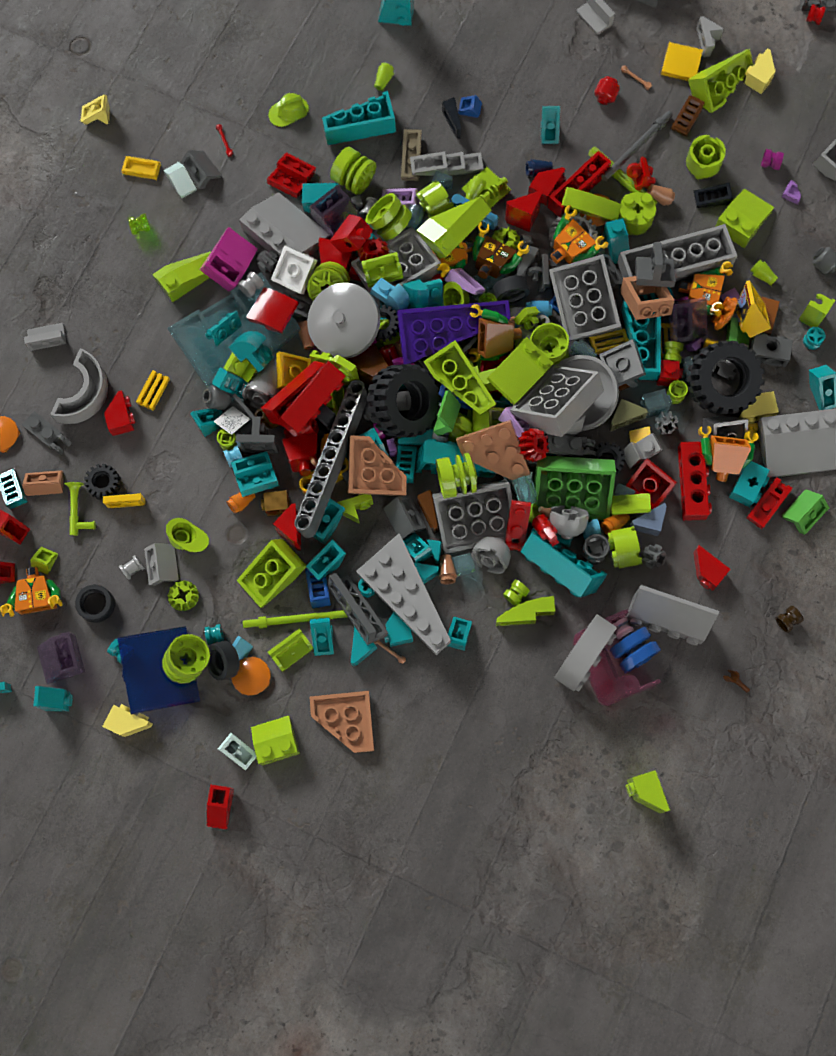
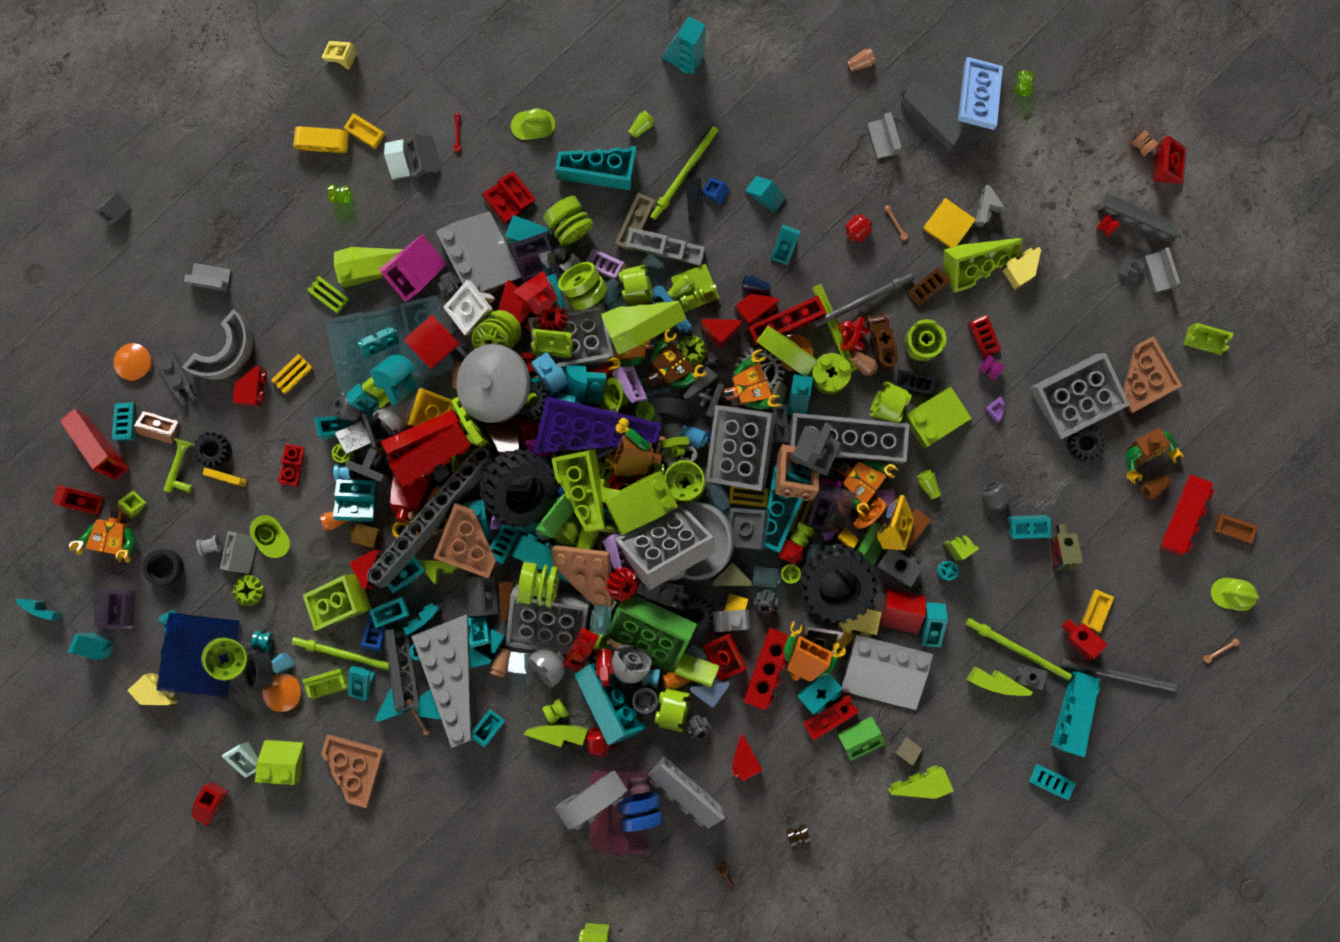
camera: 20 degrees right, 10 degrees up
(105, 186) = (321, 139): none -> yellow beam
(147, 307) = (316, 286): none -> lime tile
(182, 469) = (292, 465): none -> red slope
(250, 285) = (418, 308): light grey wheel -> none
(361, 552) = (426, 616): none -> teal slope
(429, 129) = (663, 202): none -> lime bar
(514, 92) = (766, 193): none -> teal slope
(568, 605) = (596, 743): none -> red head
(669, 169) = (882, 341): none -> reddish brown piece
(699, 215) = (889, 403): none -> lime brick
(757, 133) = (990, 333): none -> red slope
(792, 388) = (903, 611): none -> red slope

